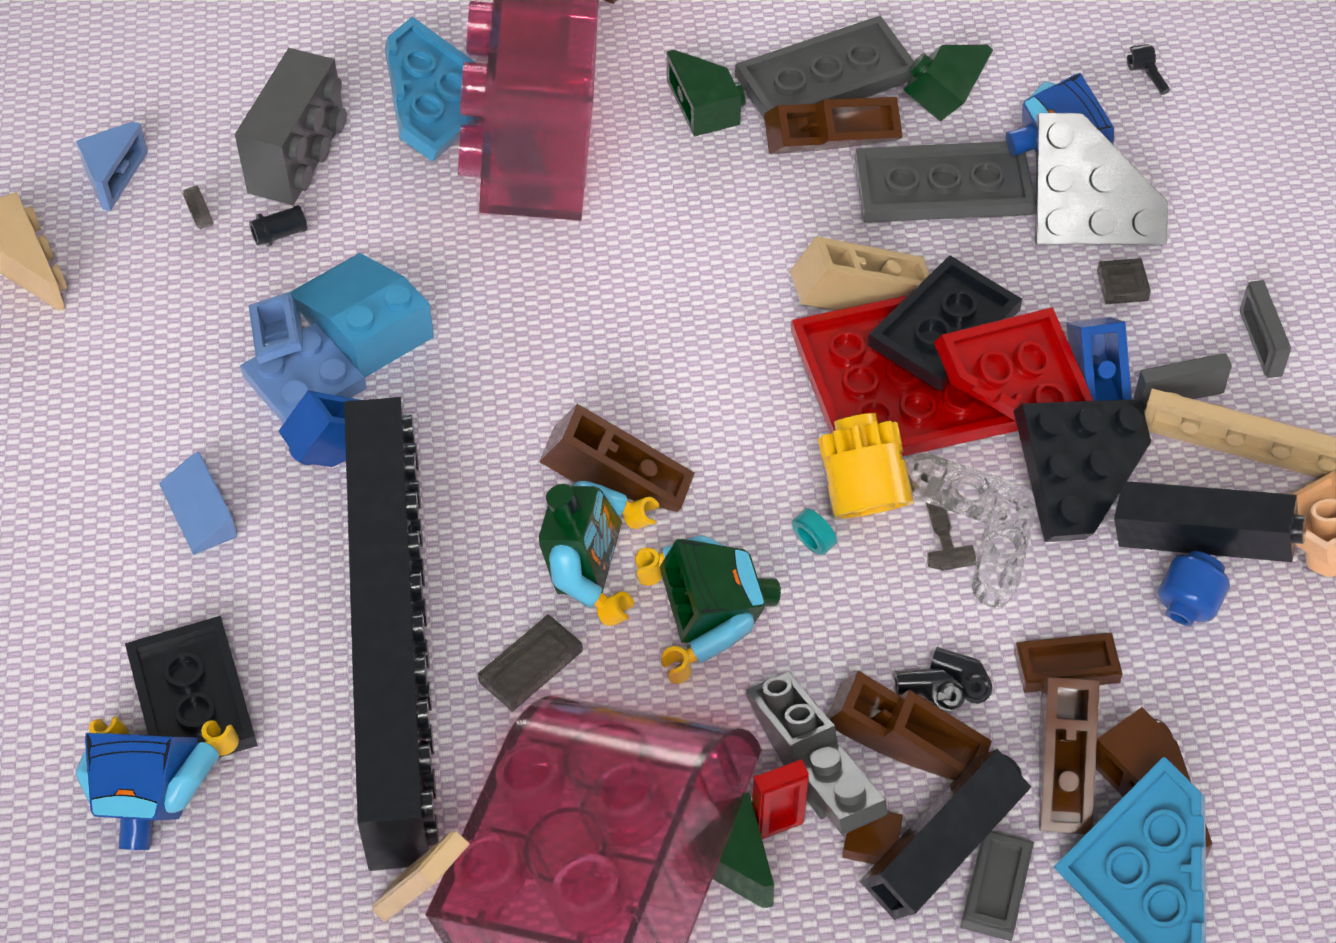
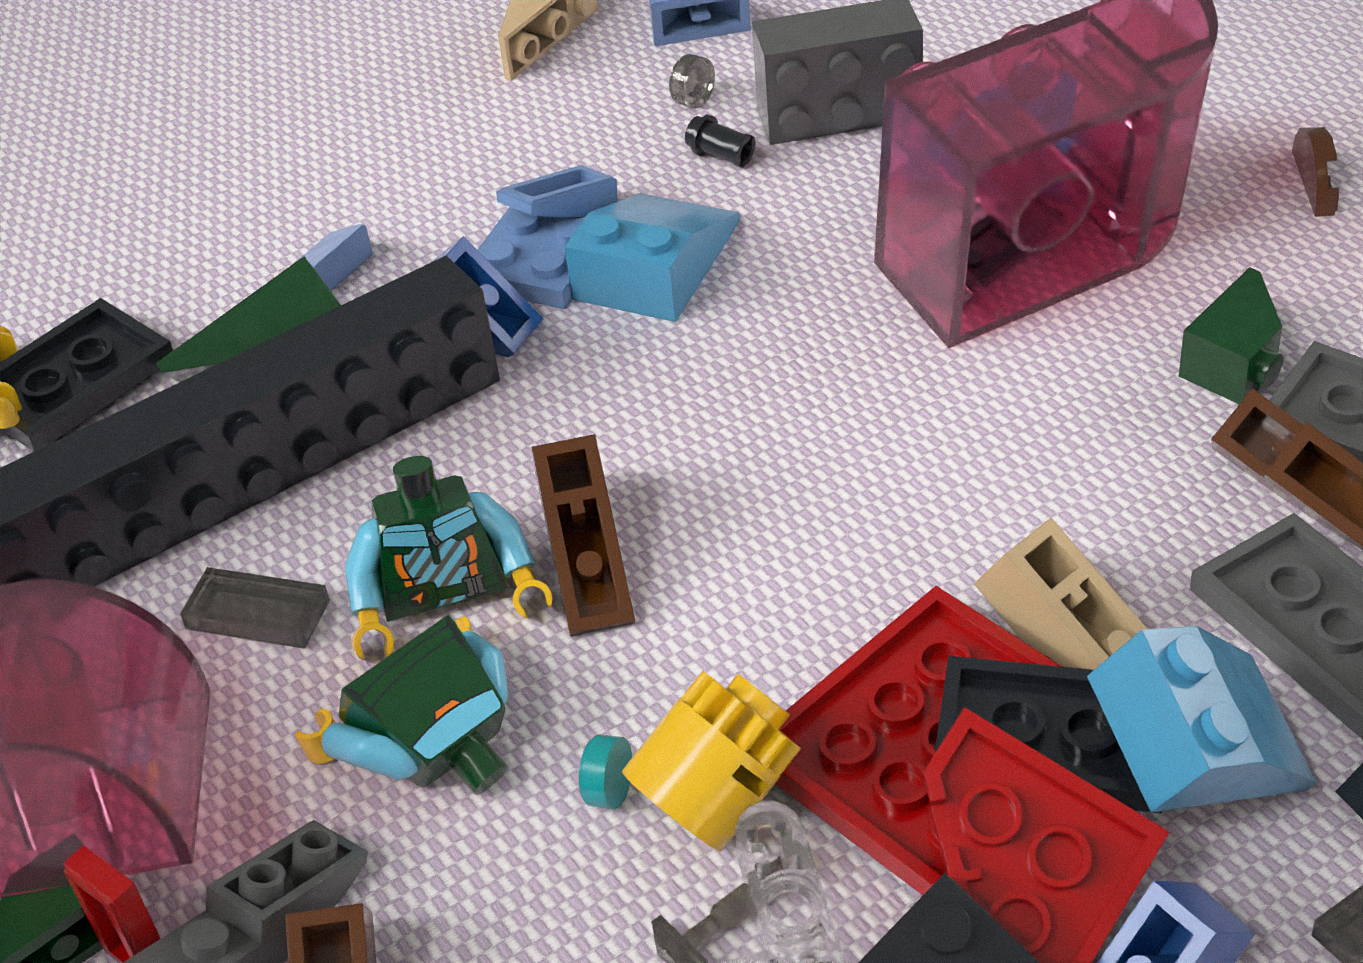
camera: 65 degrees right, 10 degrees down
(288, 545) = (271, 310): none -> dark green slope
(997, 258) = (1197, 721): none -> dark azure slope

